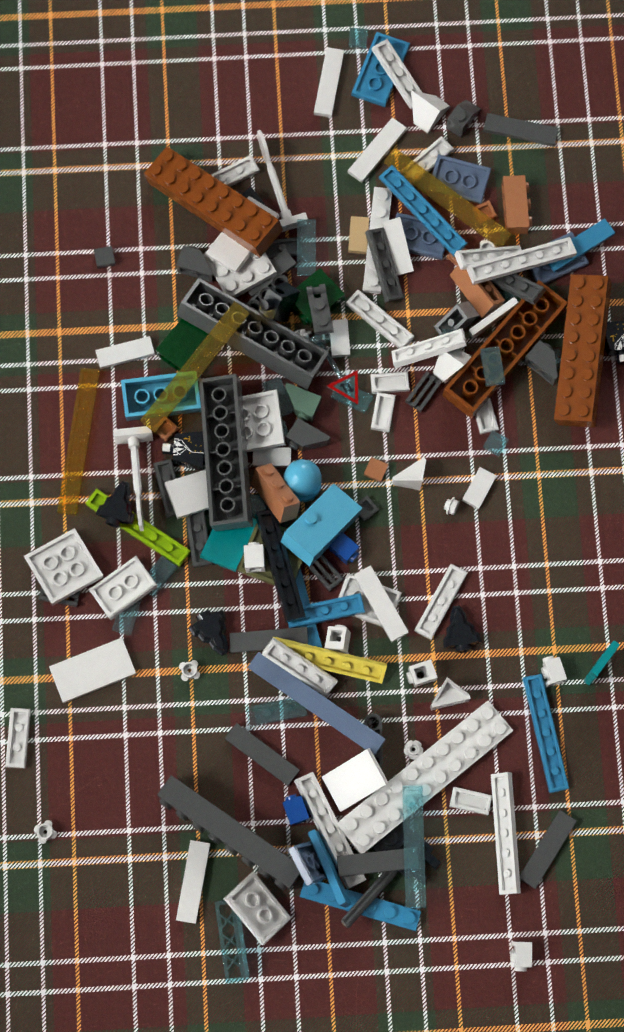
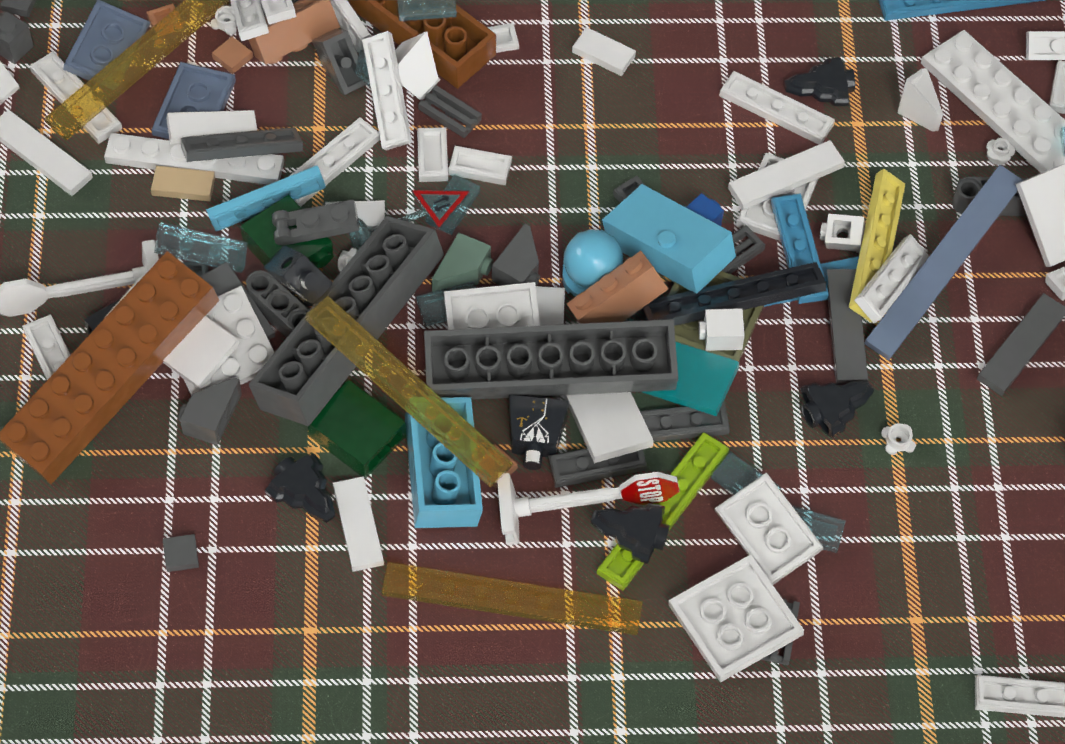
camera: 90 degrees left, 15 degrees down
(92, 670) = (905, 581): white tile -> none
(146, 319) = (302, 486): none -> black rock
(274, 712) = (956, 326): clear light blue tile -> none
(343, 282) = (256, 201): none -> medium azure tile
(376, 469) = (572, 178): nougat tile -> none
(411, 476) = (585, 122): white slope -> none
(422, 210) = (155, 89): dark azure tile -> none
(426, 668) = (889, 130): white brick -> none
(451, 506) = (632, 84): white plate -> none
(495, 443) = (535, 27): clear light blue tile -> none

